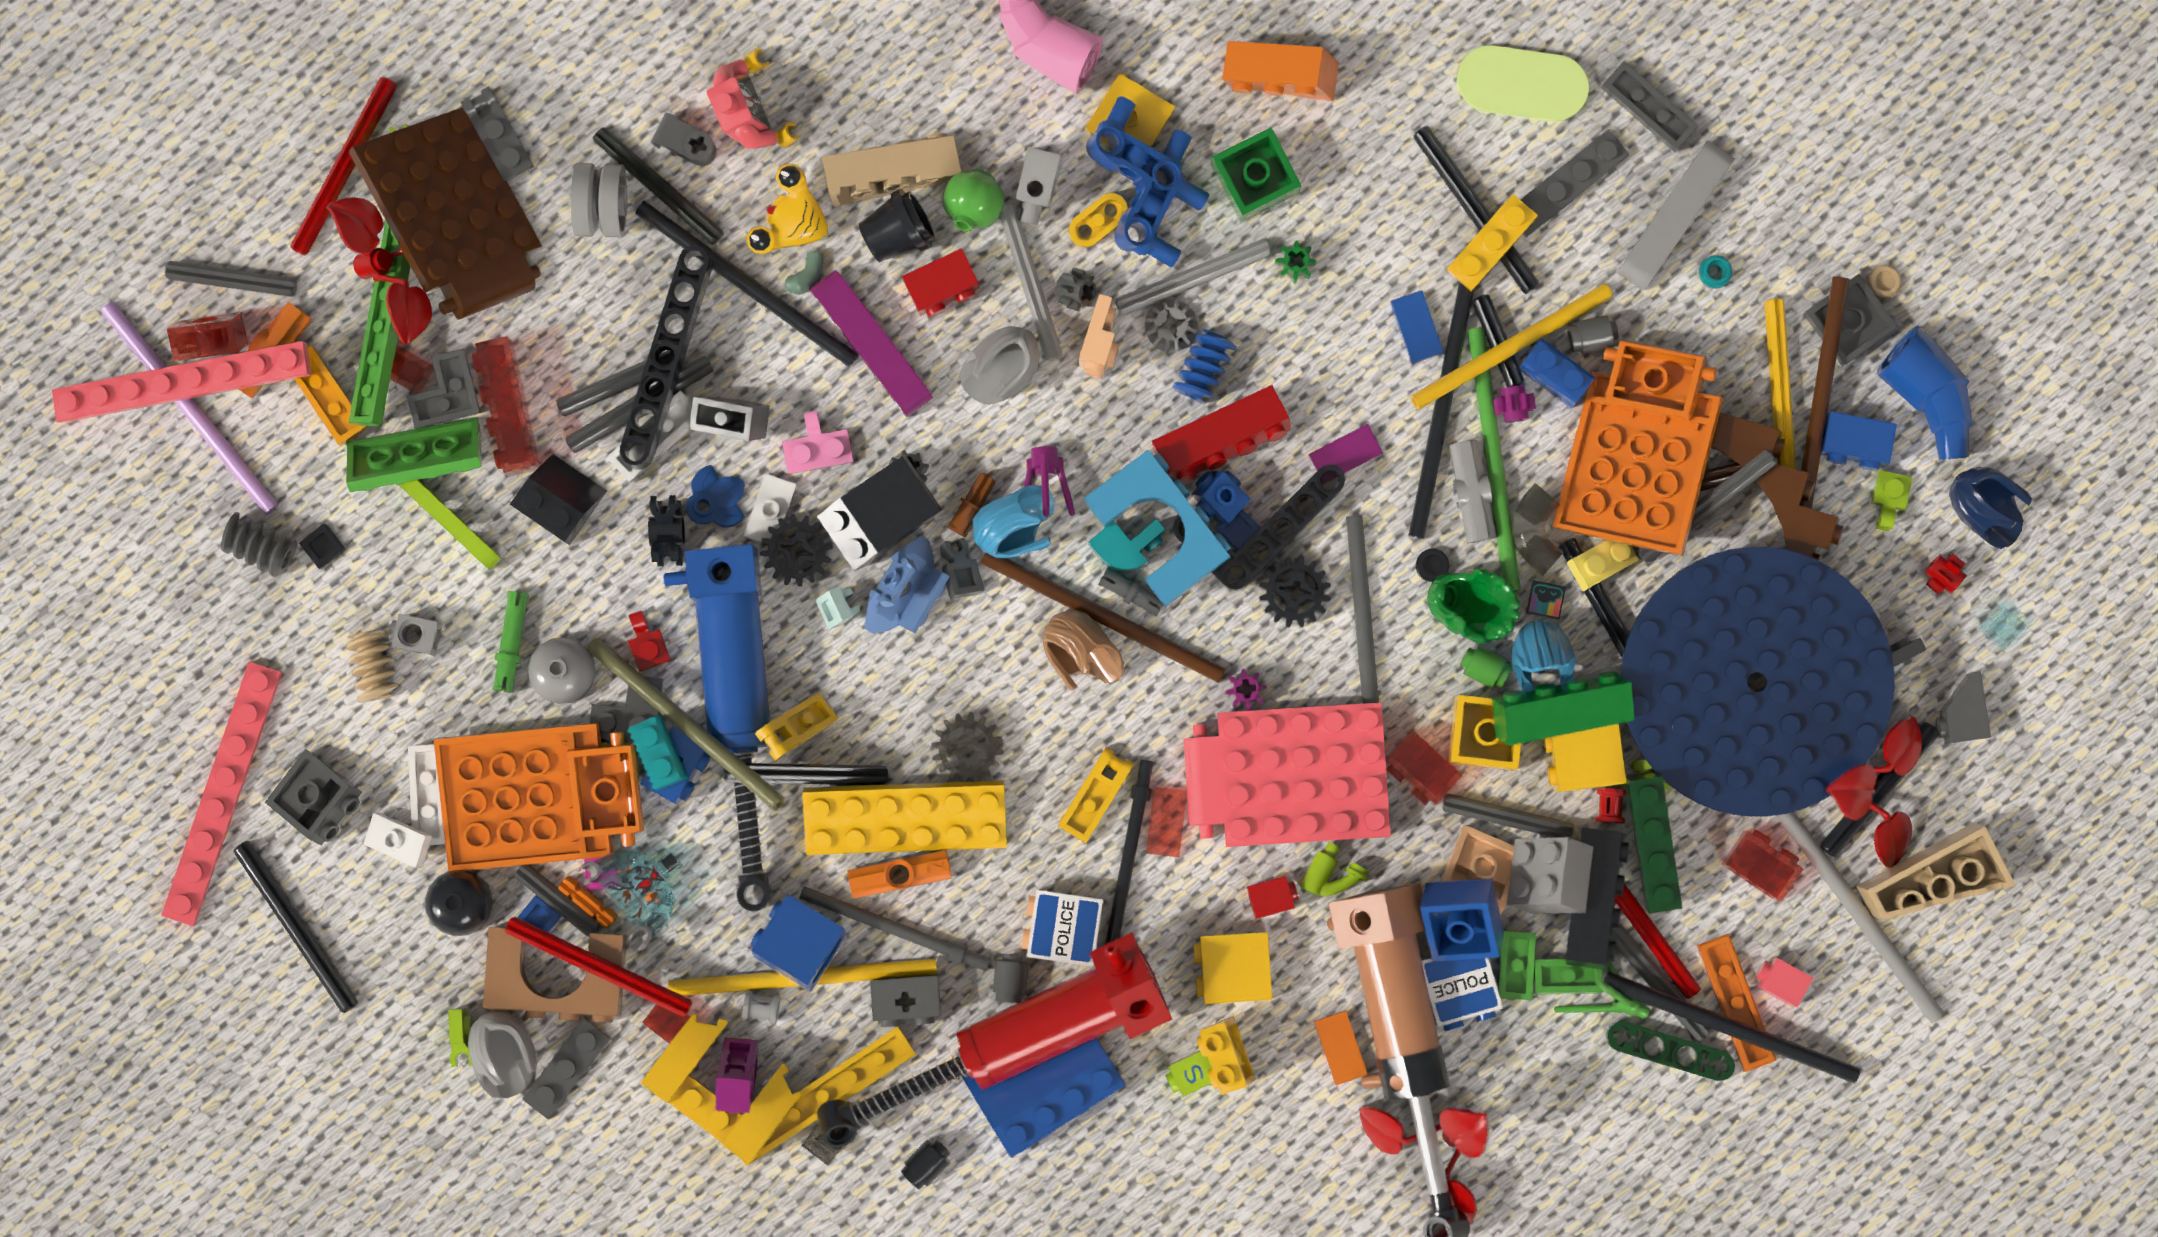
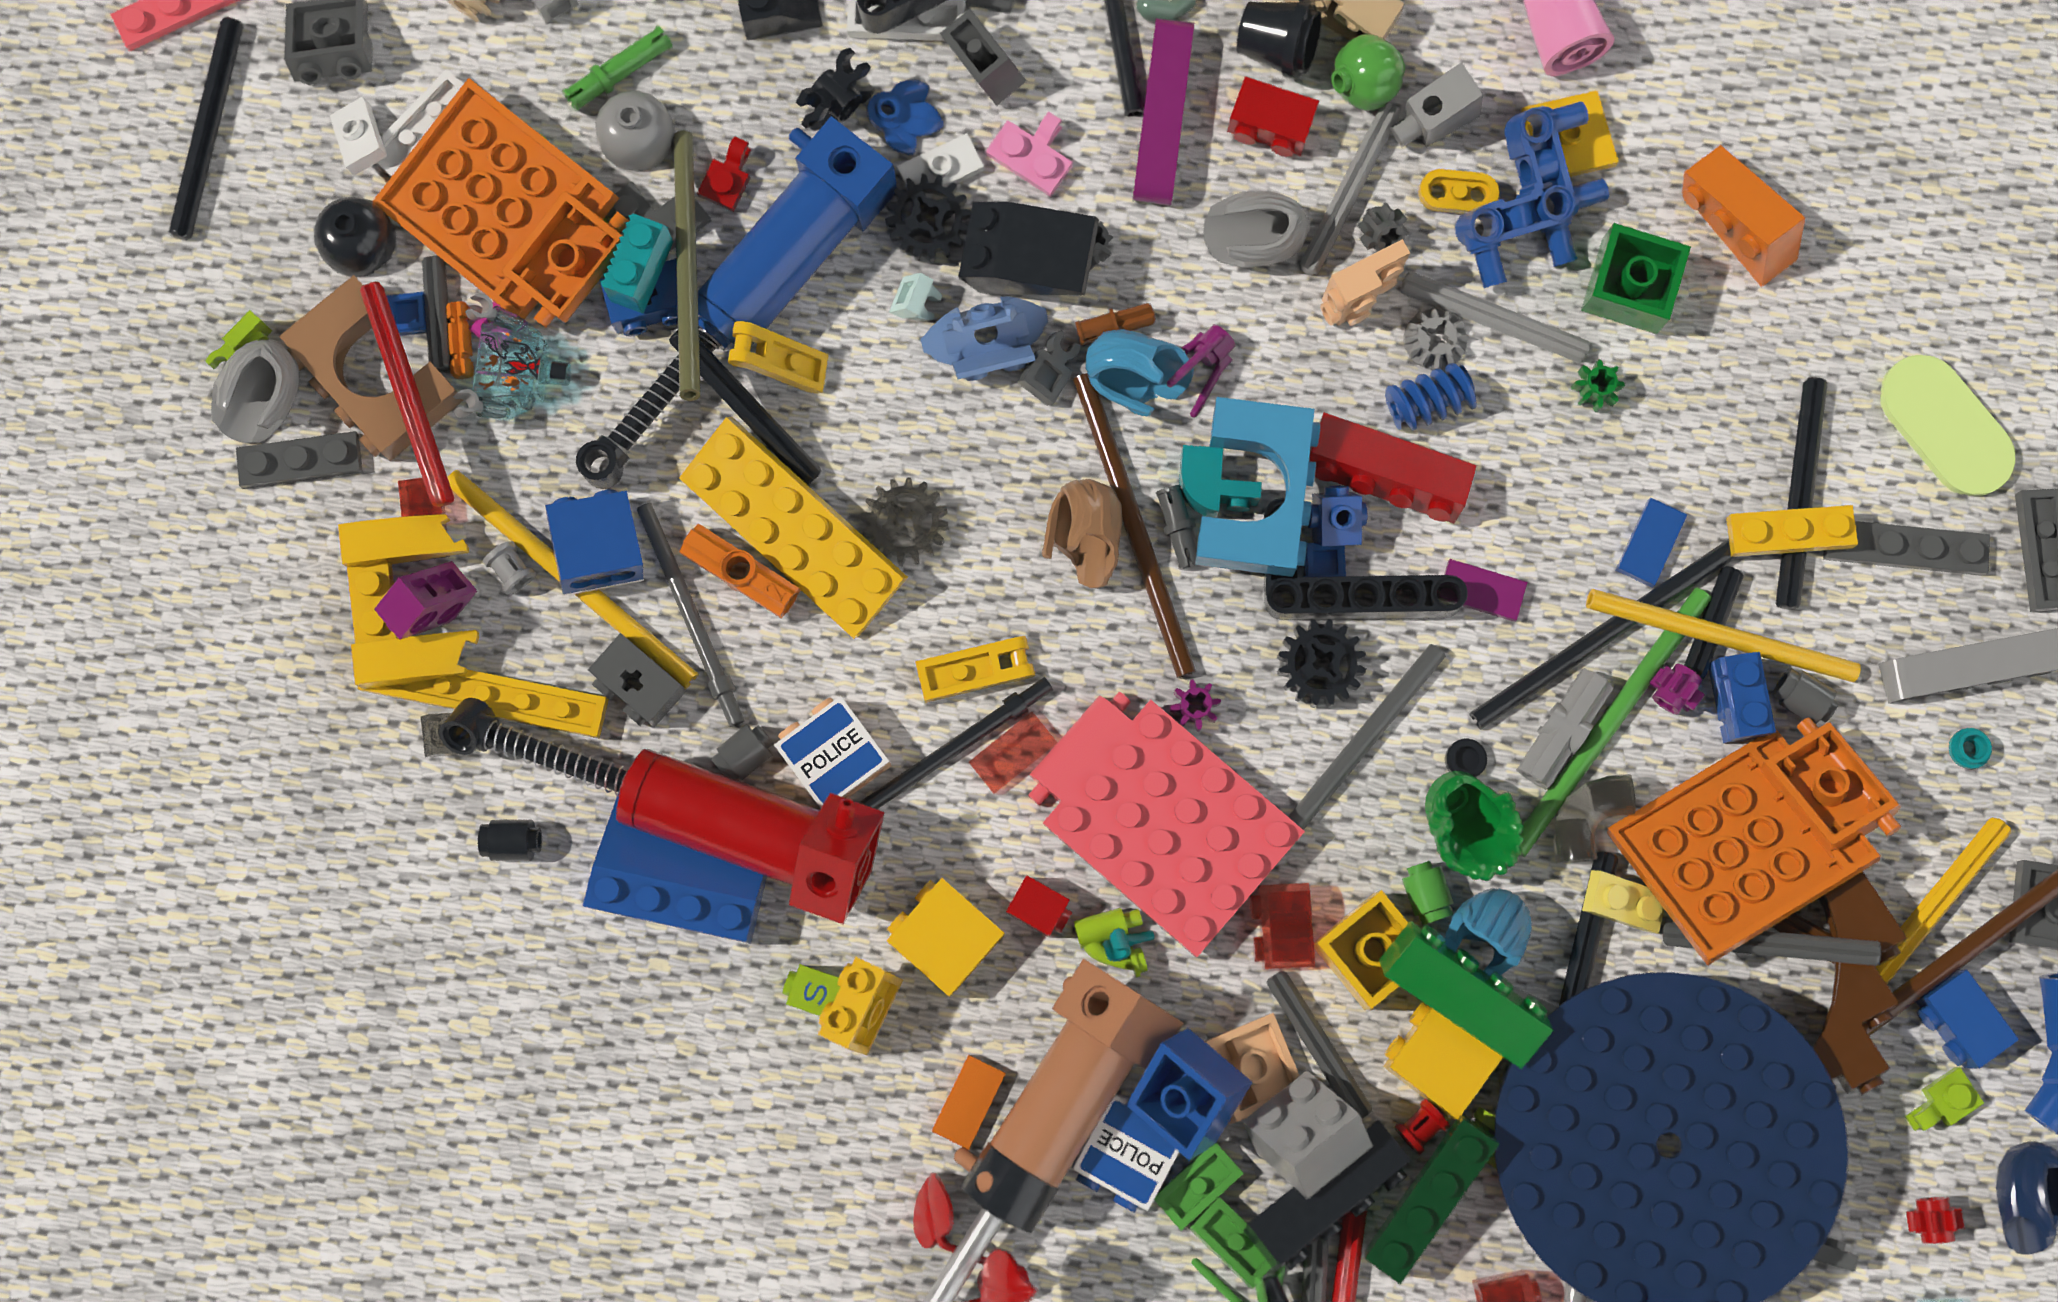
camera: 40 degrees right, 5 degrees down
(1338, 873) = (1119, 945): none -> teal hand
(1545, 600) = (1539, 887): tile -> none

